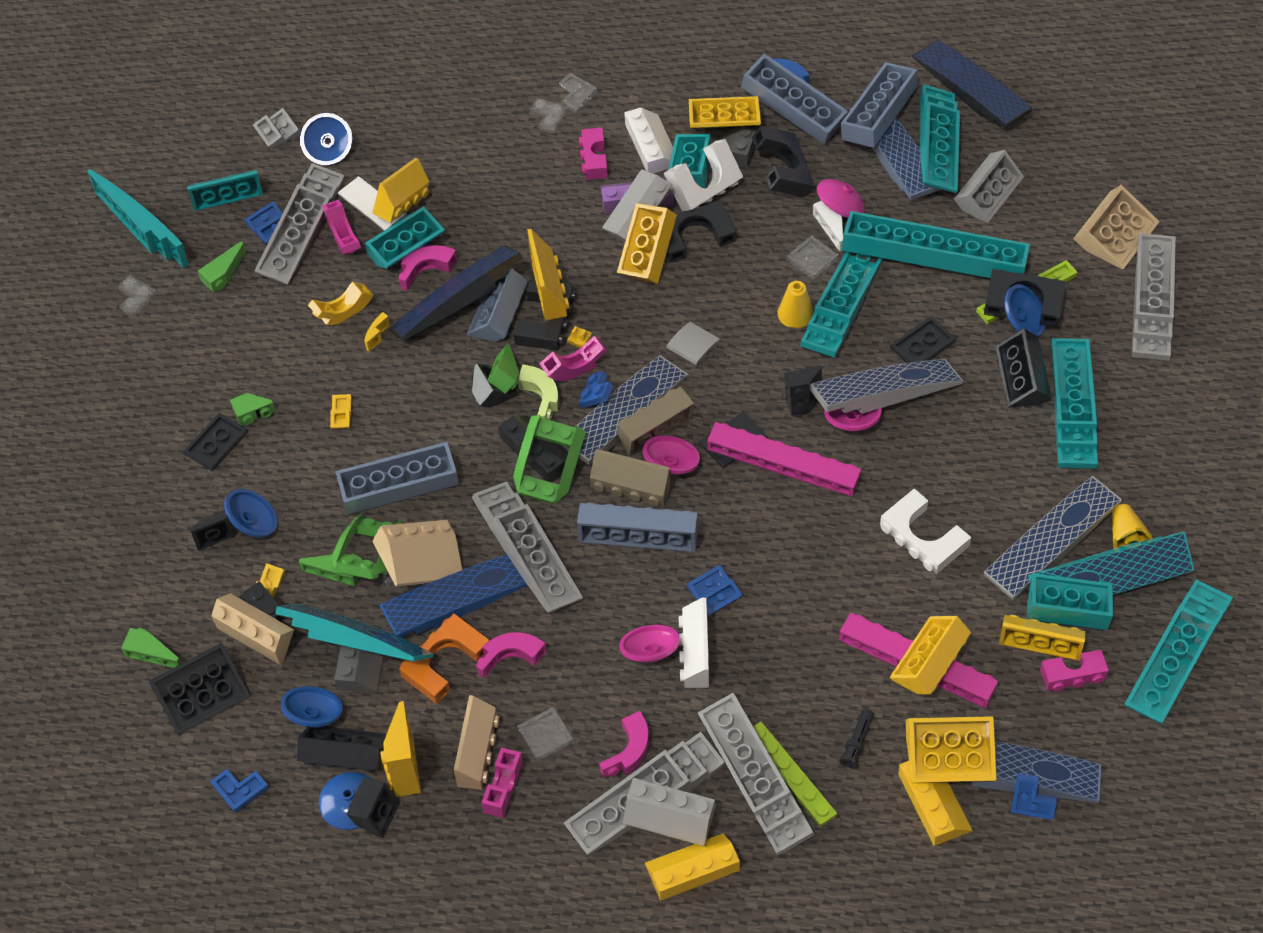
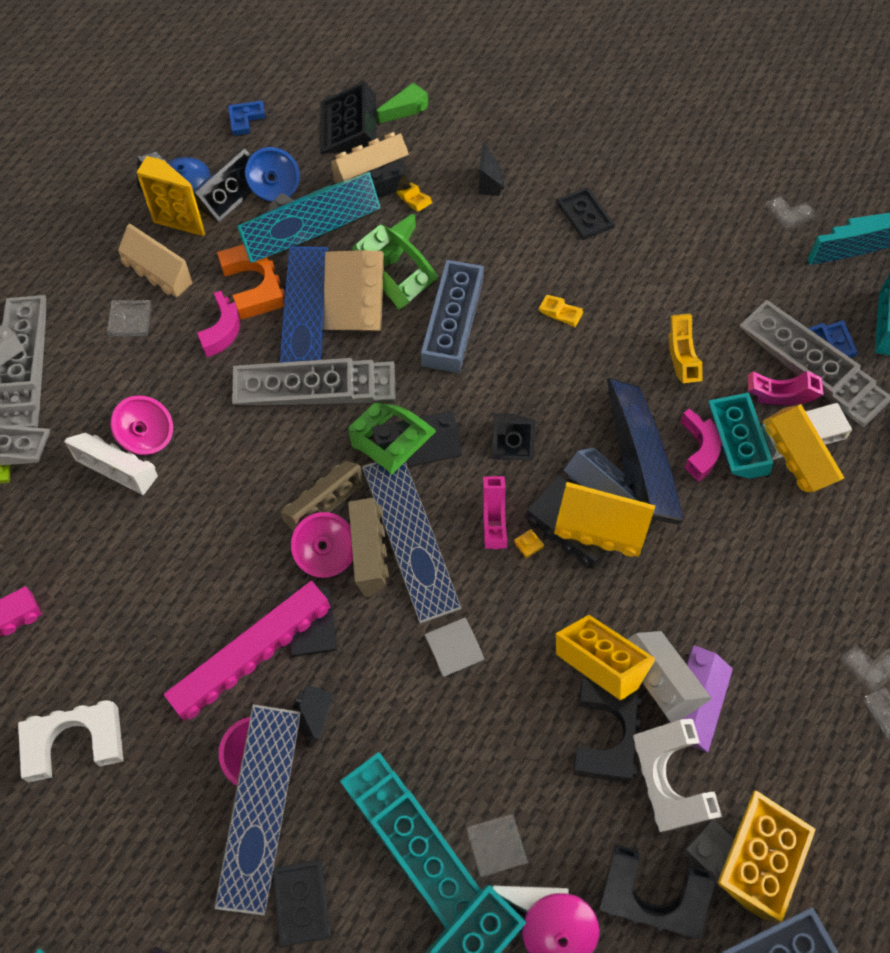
camera: 115 degrees right, 5 degrees up
(220, 270) = (786, 281): bright green slope -> none
(246, 406) = (604, 244): bright green slope -> none
(250, 513) = (470, 199): blue dish -> none
(373, 334) = (633, 366): yellow slope -> none
(504, 370) = (517, 446): bright green slope -> none
(506, 775) = (112, 271): dark pink arch -> none
(537, 381) = (472, 478): yellowish green arch -> none
(592, 142) = (802, 685): dark pink arch -> none
(595, 390) = (446, 515): blue plate -> none
(634, 753) = (68, 378): dark pink arch -> none
(637, 527) = (261, 474): sand blue brick -> none
(649, 139) = (775, 758): white slope -> none
(689, 150) = (713, 771): teal slope -> none
(716, 589) = (151, 513): blue slope -> none
(795, 306) = (432, 781): yellow cone -> none

